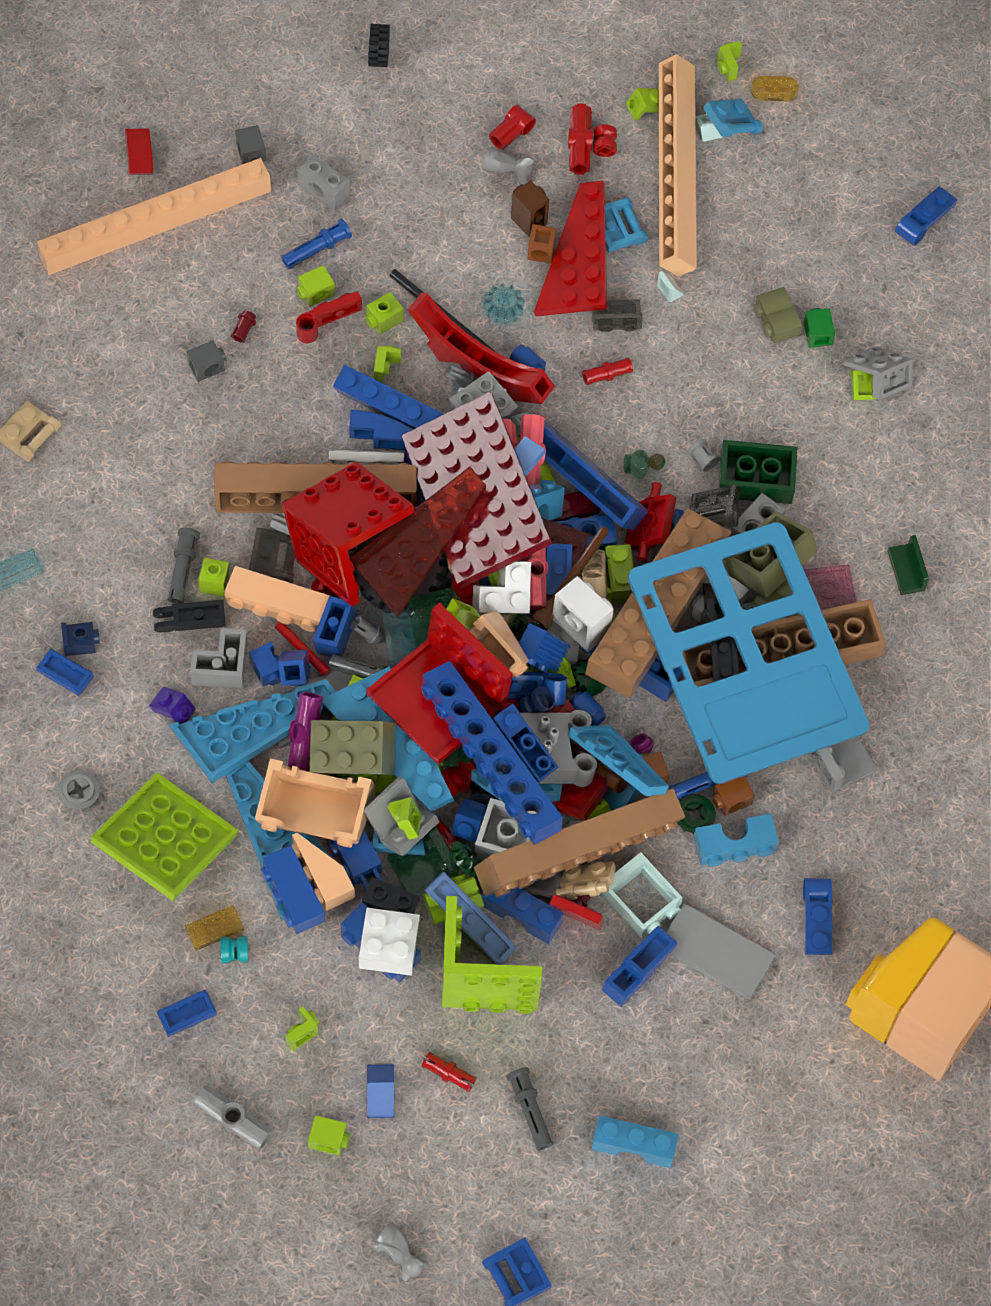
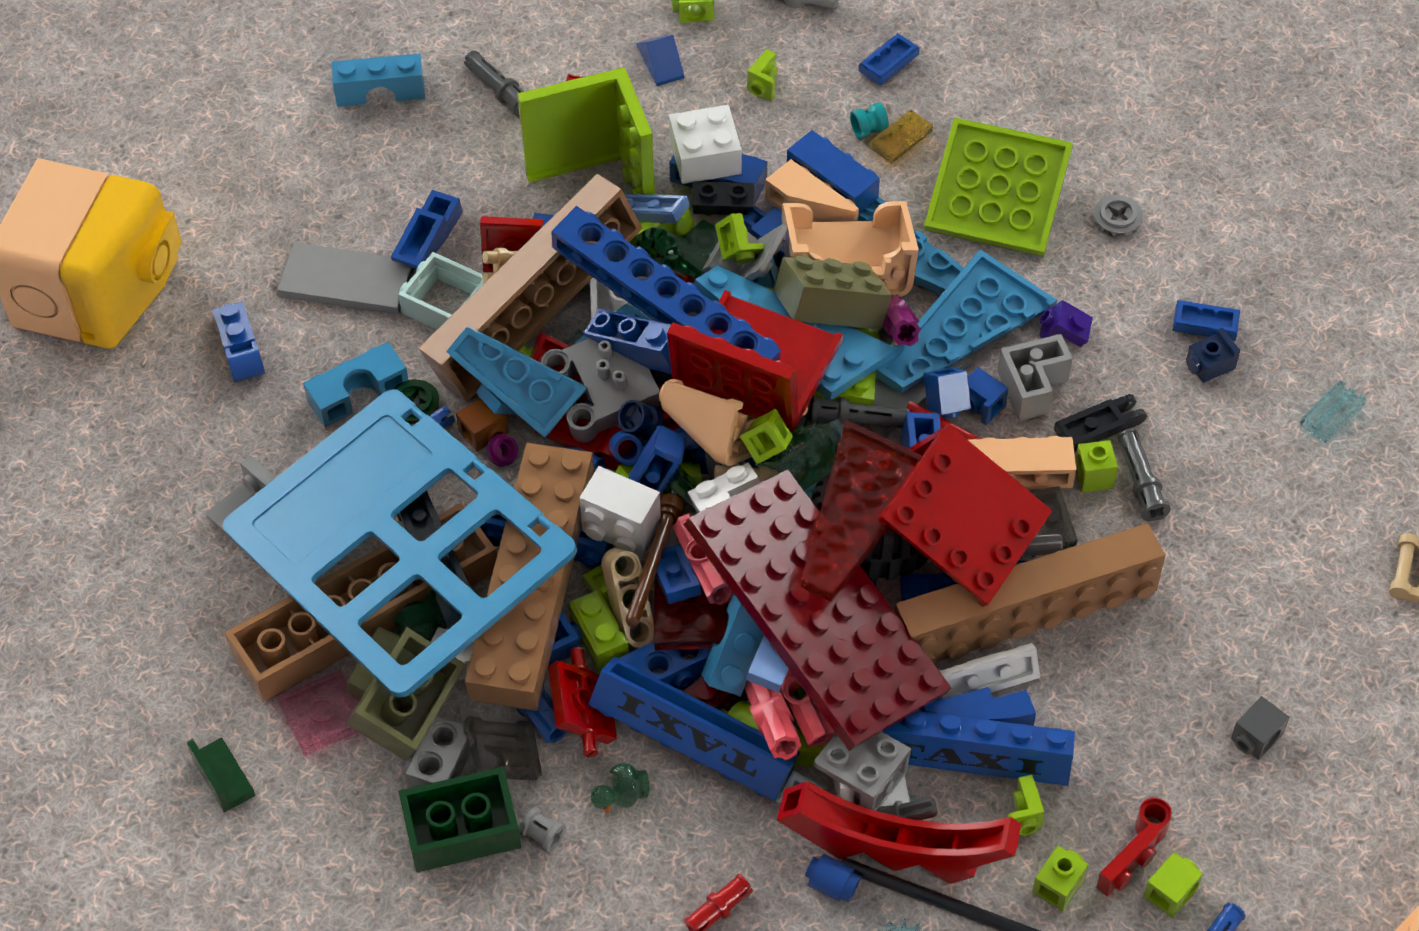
camera: 165 degrees right, 10 degrees down
(242, 329) = (1239, 803): dark red pin -> none

